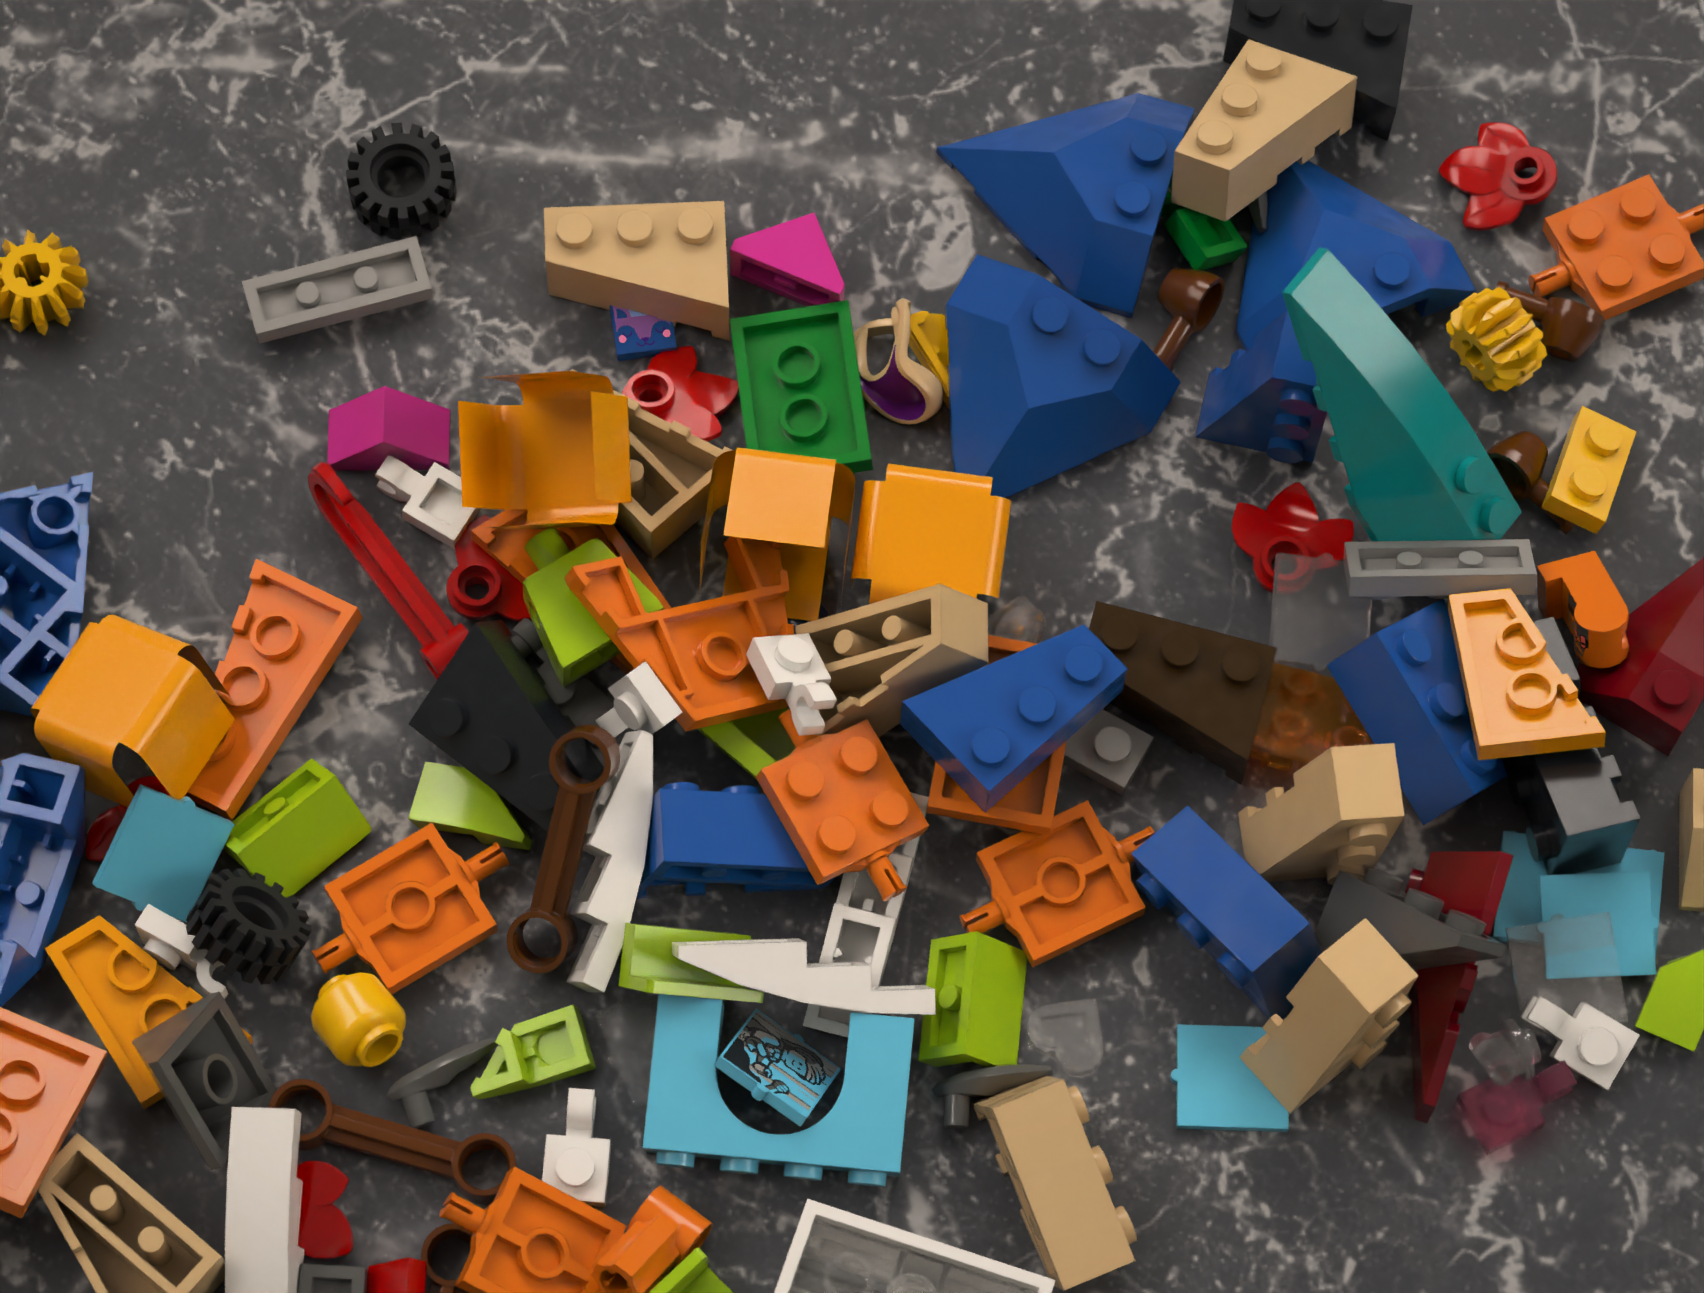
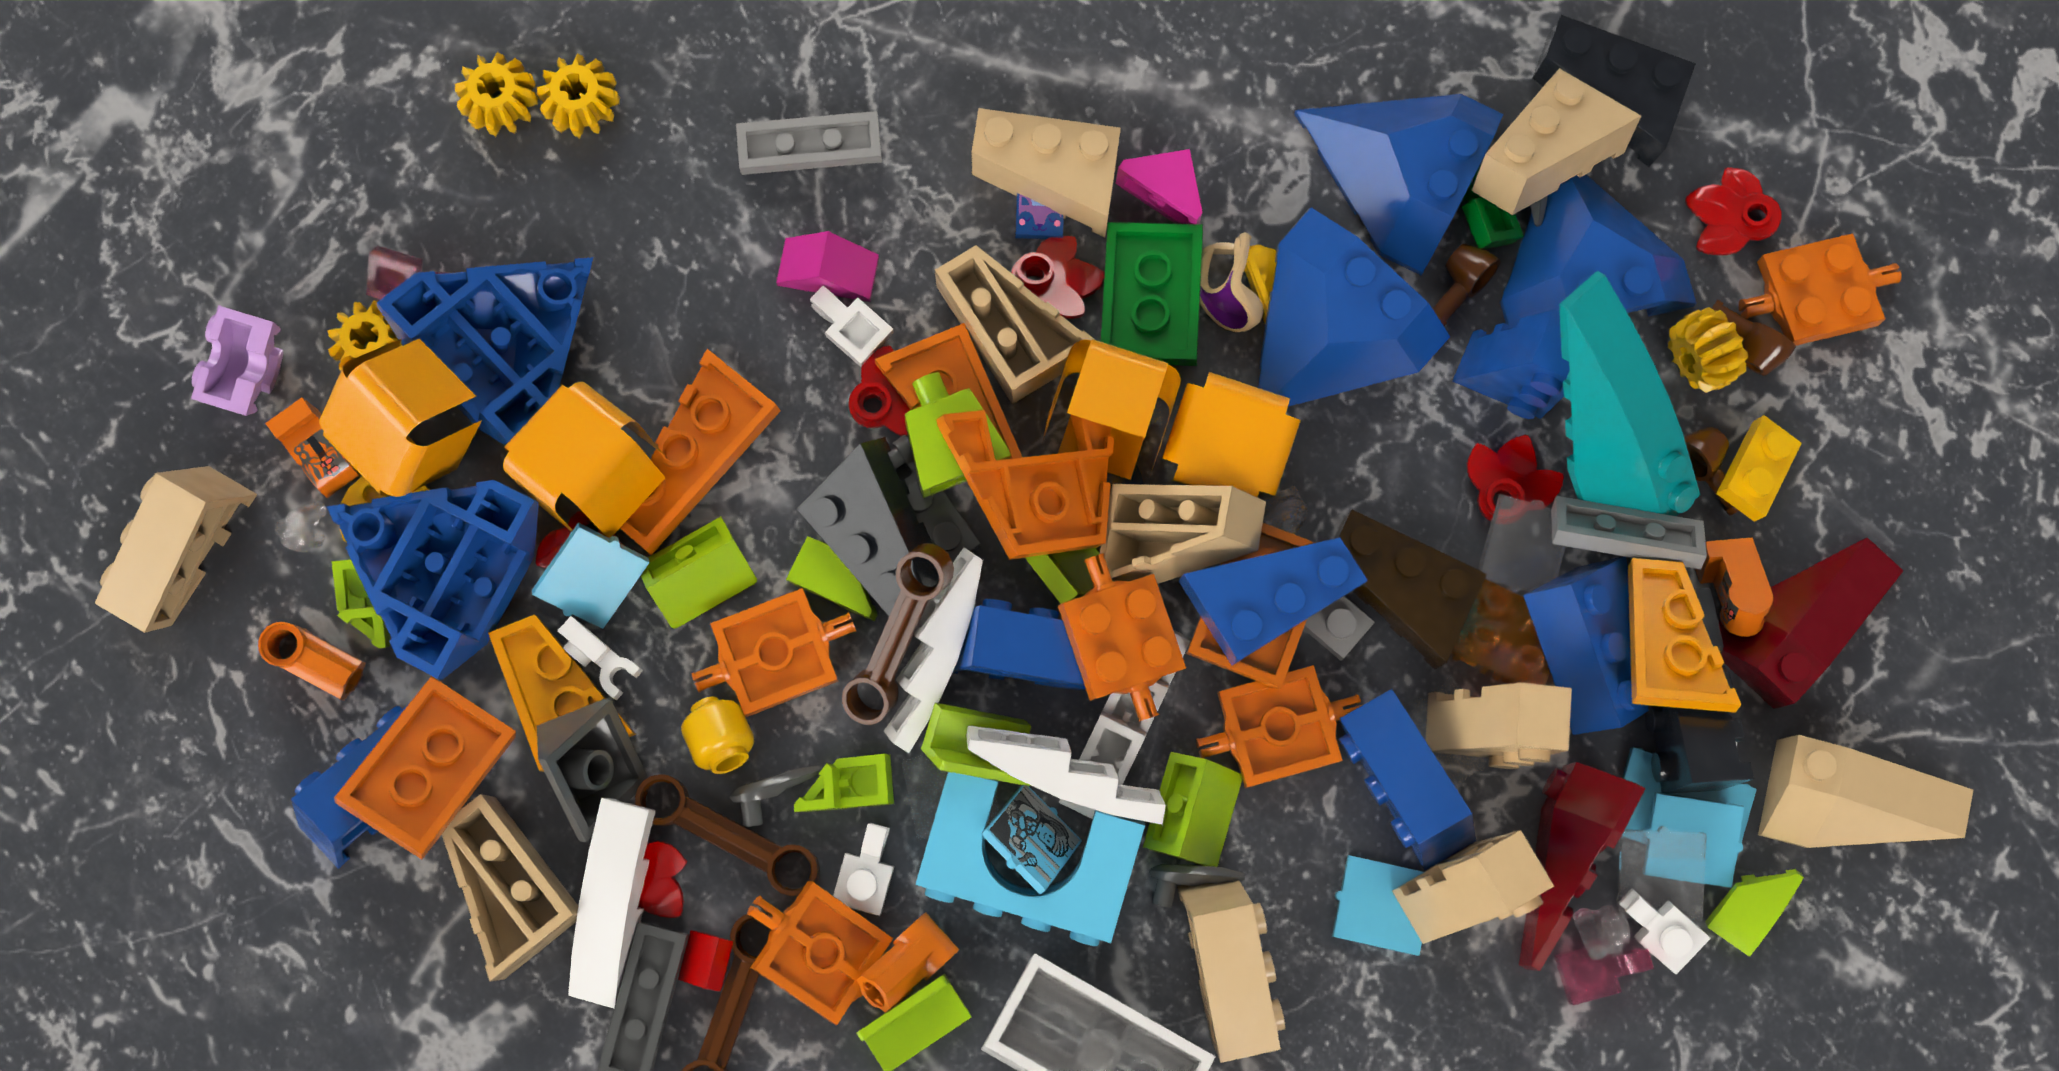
camera: 10 degrees right, 10 degrees up
(248, 926) = (630, 661): black tyre -> none
(386, 569) = (807, 377): red piece -> none
(396, 150) = (867, 38): black tyre -> none
(553, 455) = (946, 310): light orange piece -> none
(639, 703) = (977, 531): white plate -> none
(794, 672) = (1102, 526): white plate -> none
(1068, 1034) = (1263, 847): clear tile -> none
(1406, 921) = (1550, 824): dark grey slope -> none

